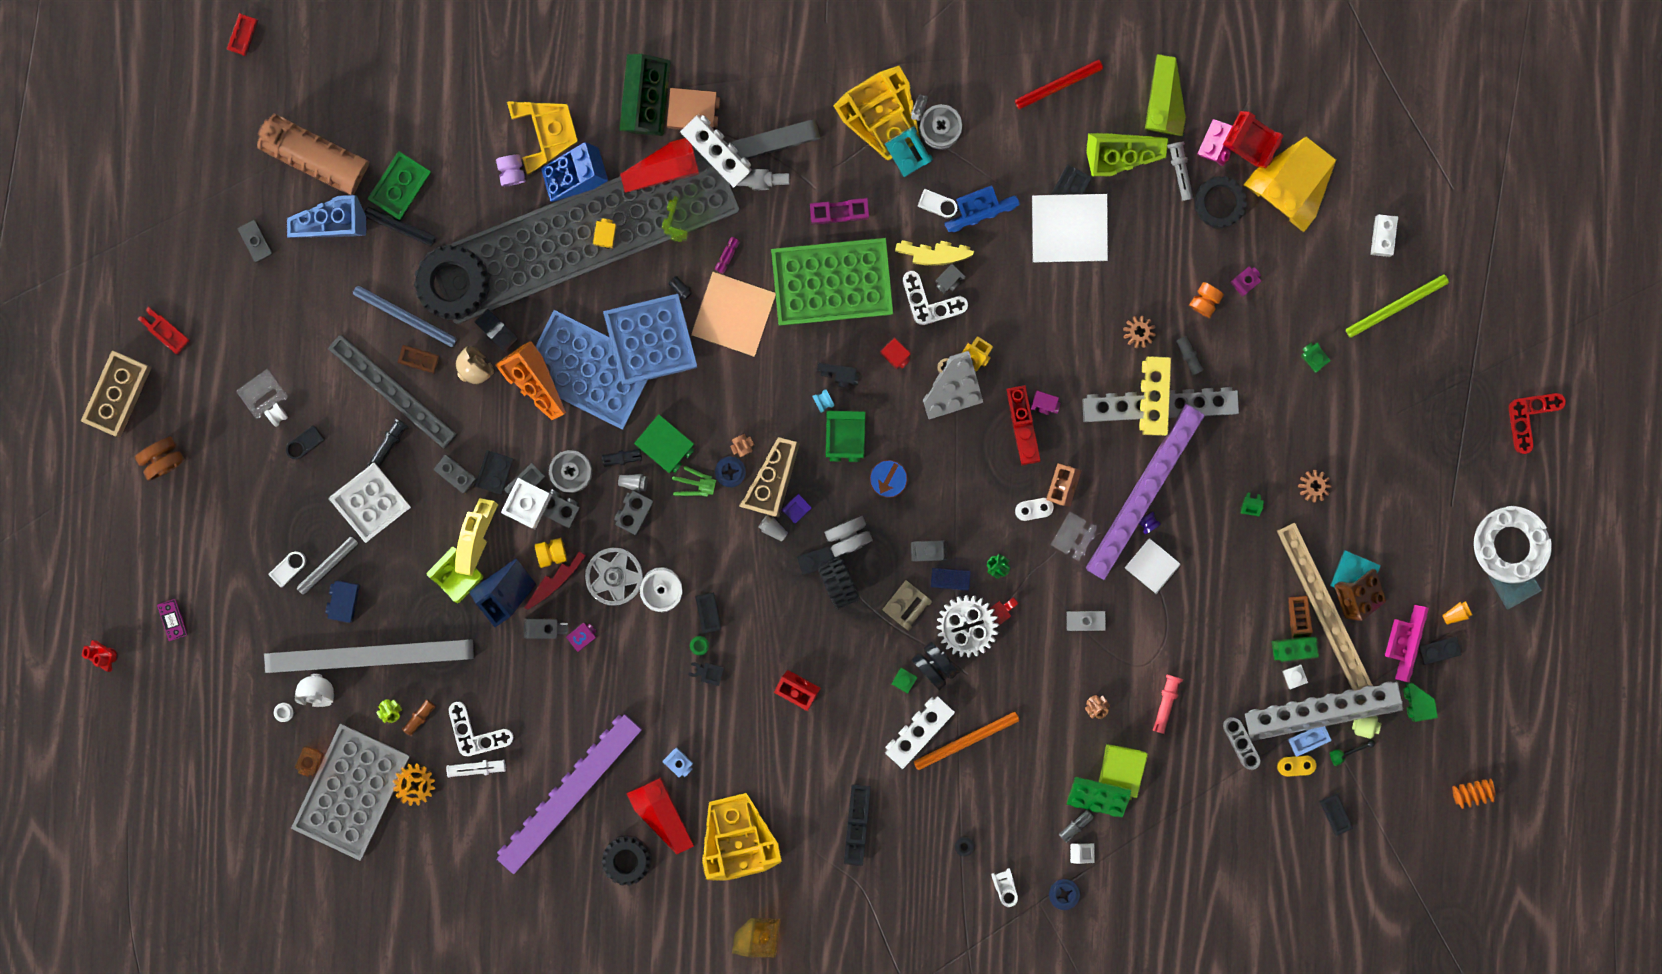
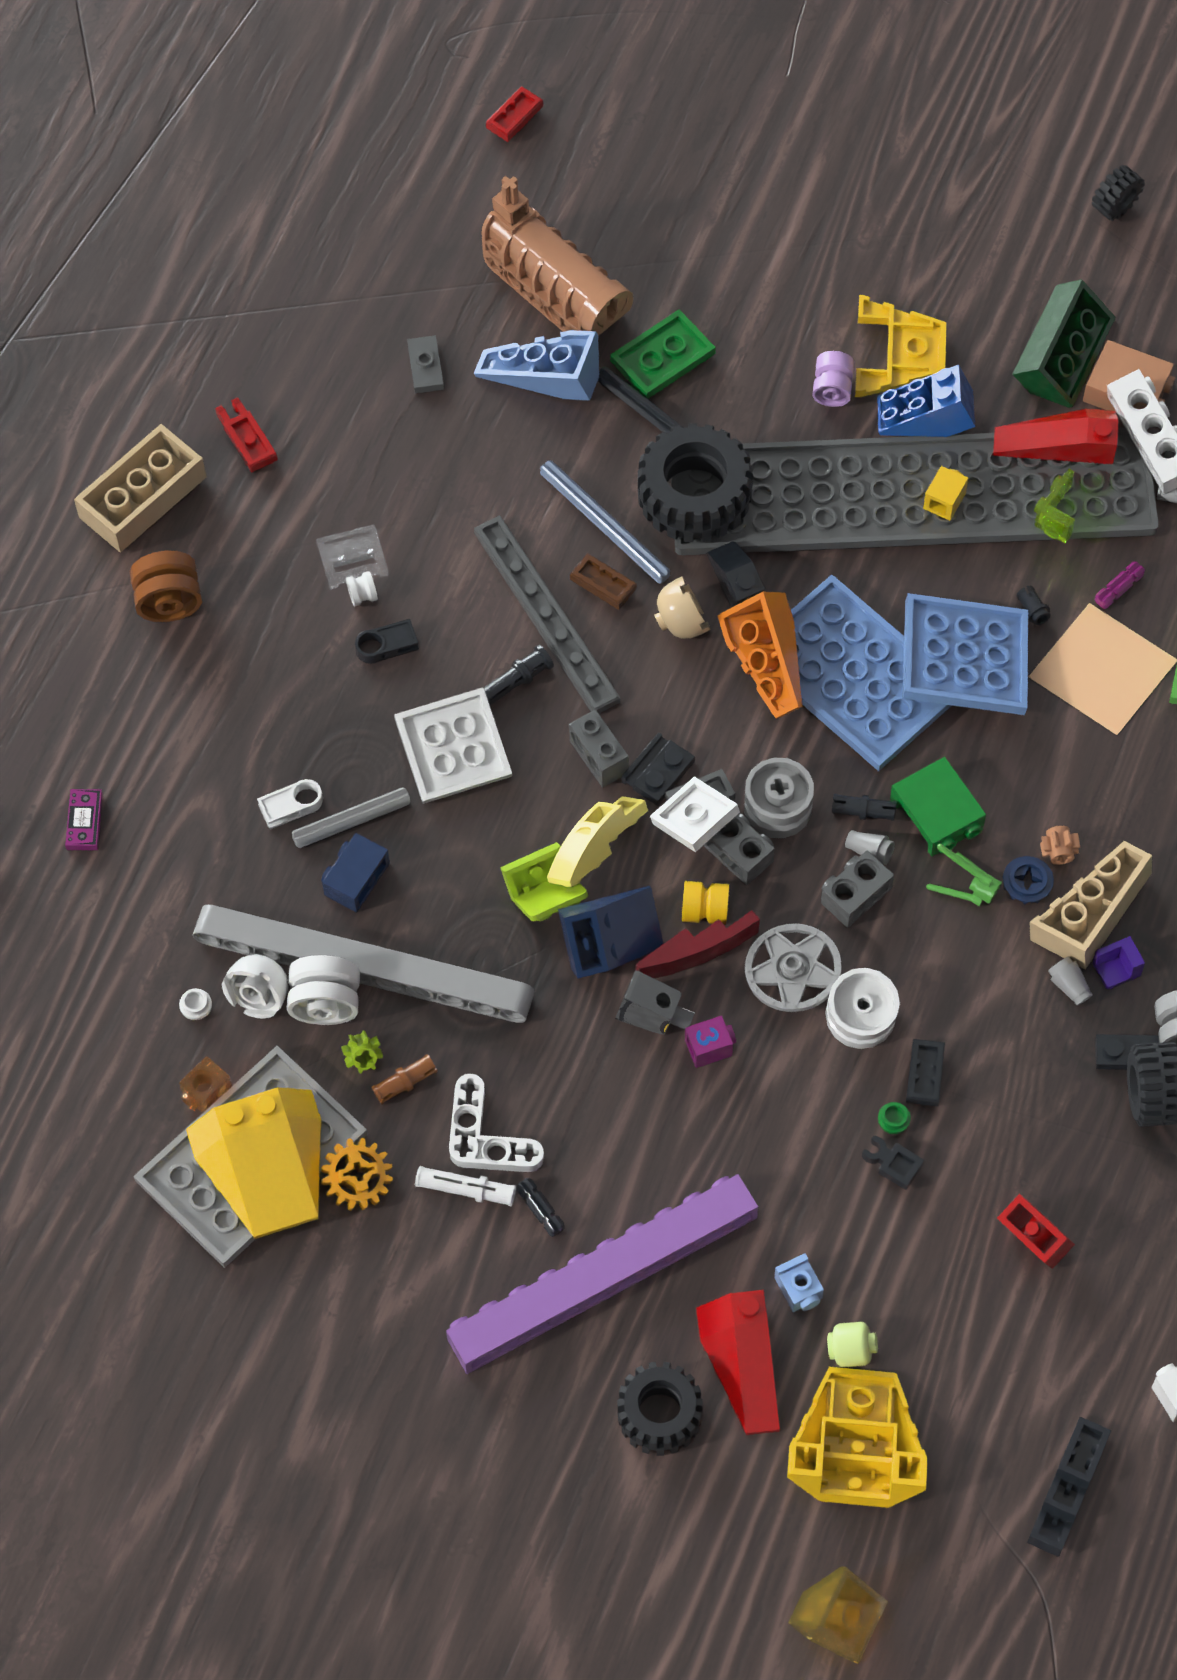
camera: 20 degrees right, 25 degrees down
(354, 685) = (323, 990): none -> white wheel
(360, 795) = (263, 1157): none -> yellow wedge
(521, 765) = (540, 1207): none -> black axle
(717, 787) = (852, 1344): none -> yellowish green head

